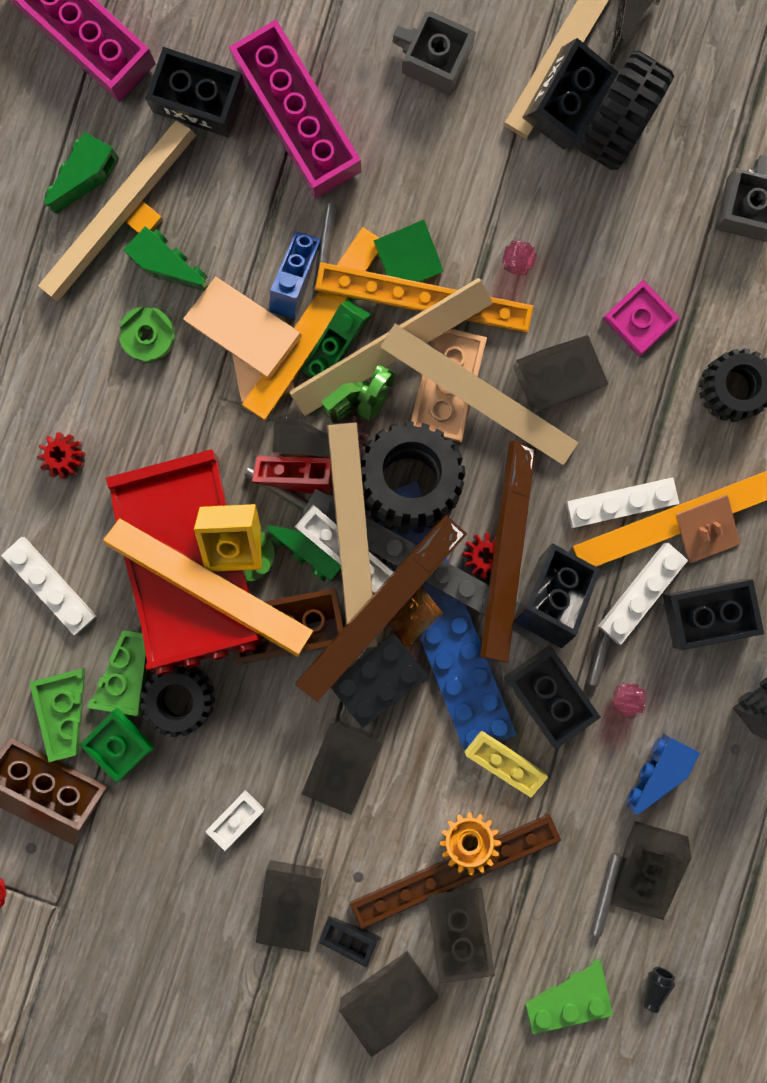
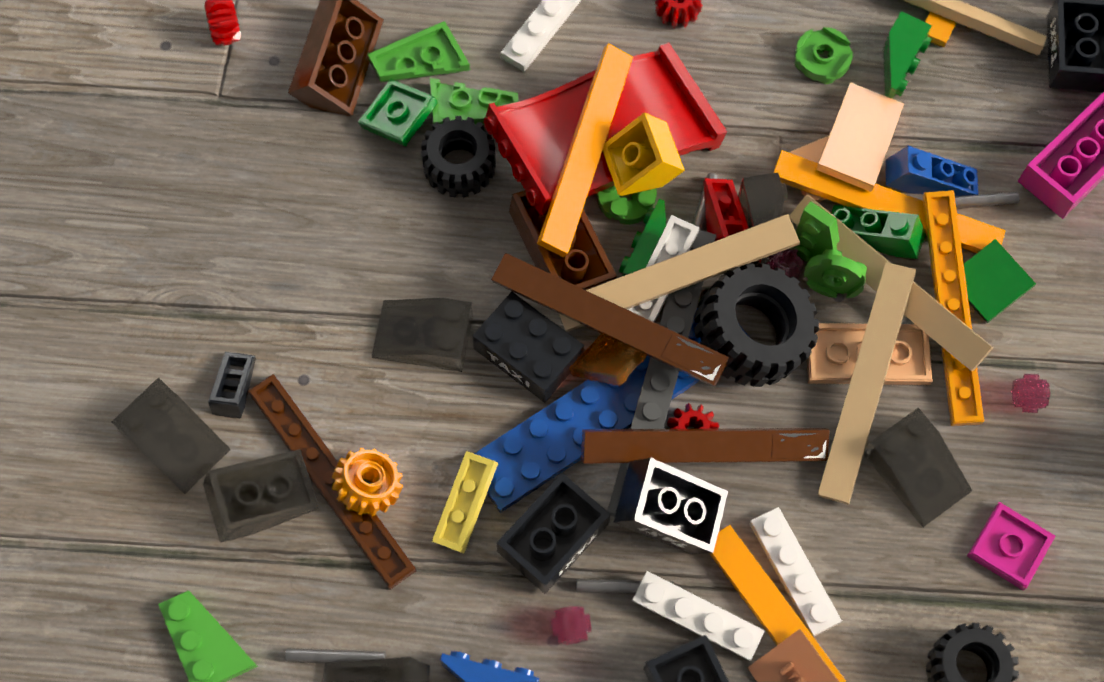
camera: 75 degrees right, 20 degrees down
(235, 820) = (342, 239): white plate -> none
(289, 905) = (260, 311): clear smoke slope -> none

